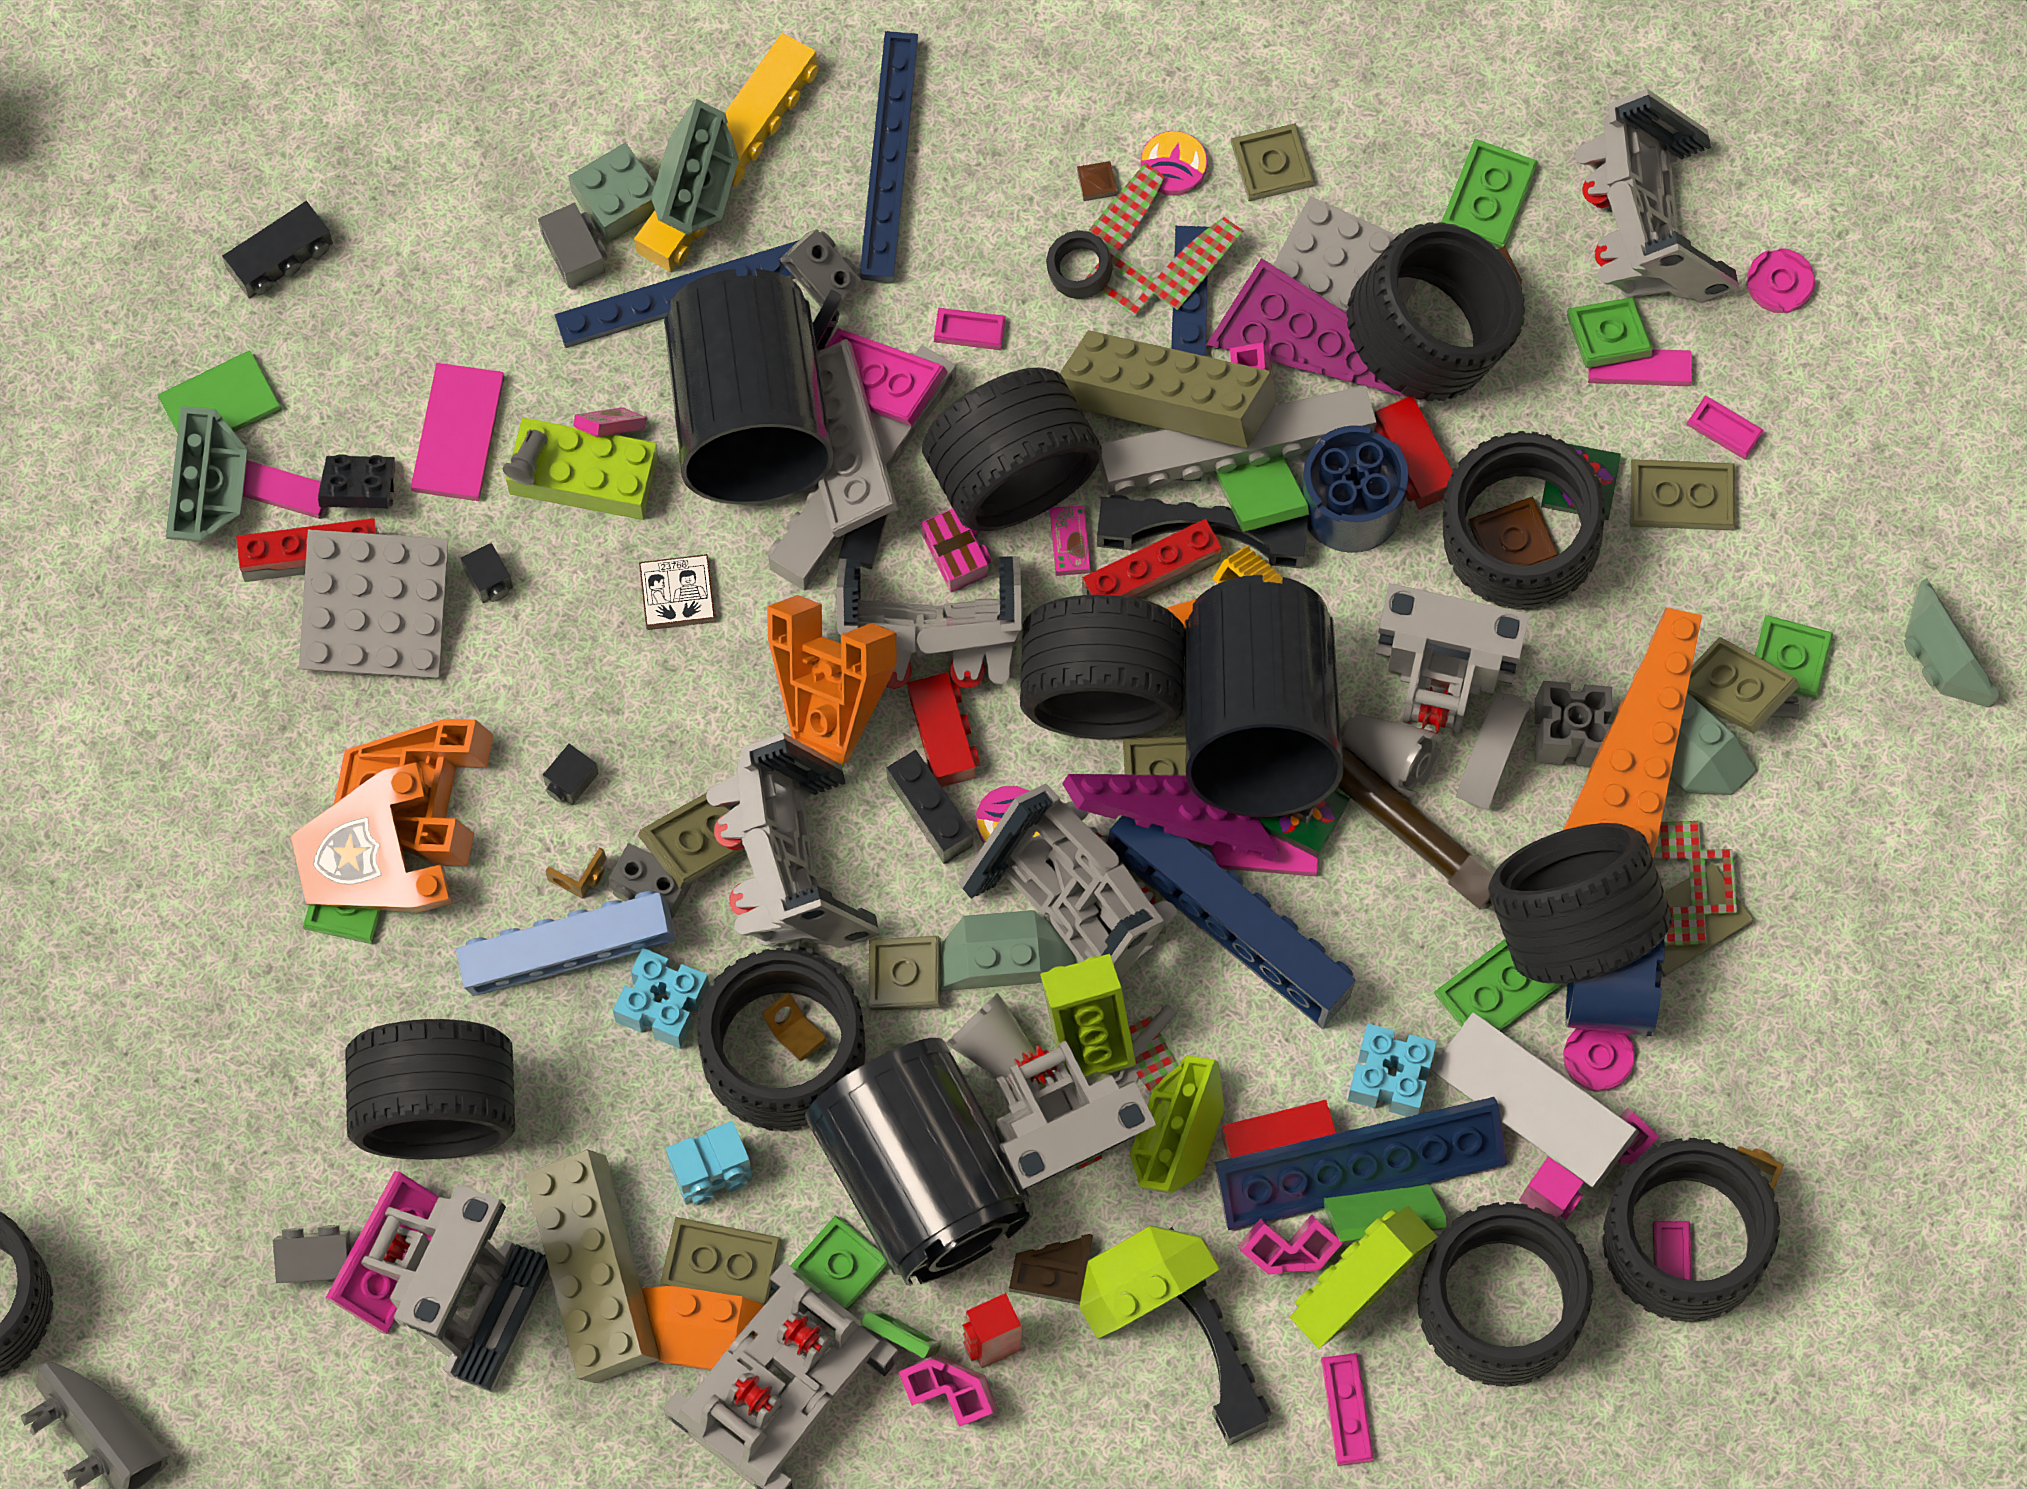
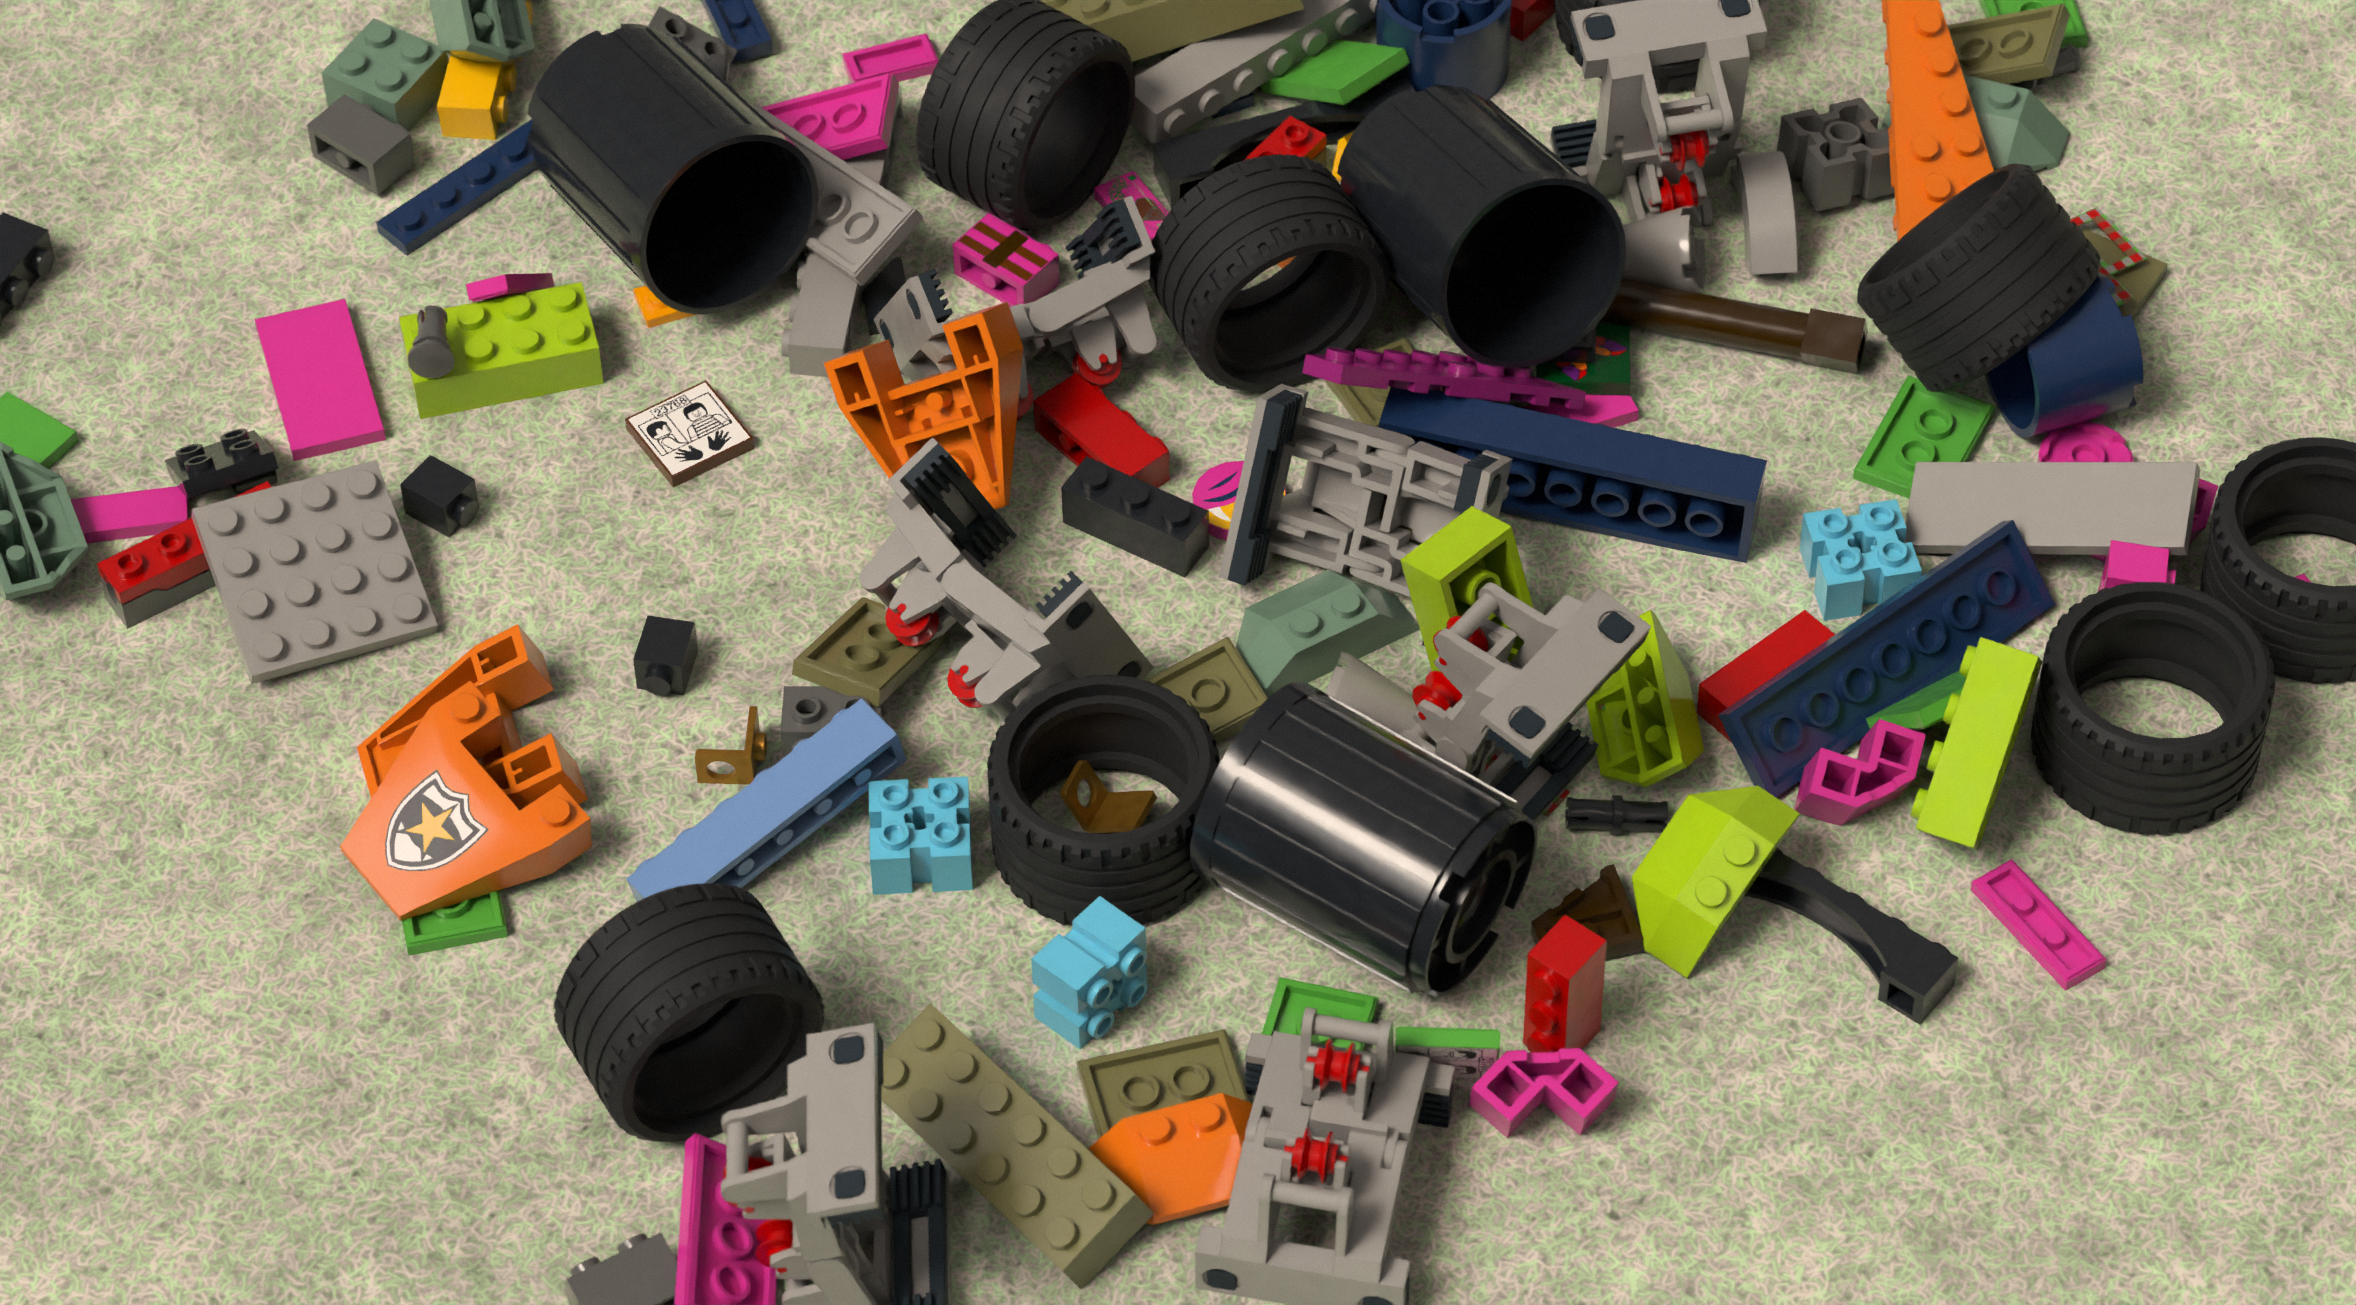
camera: 25 degrees left, 20 degrees down
(1118, 1194) = (1616, 815): none -> black pin

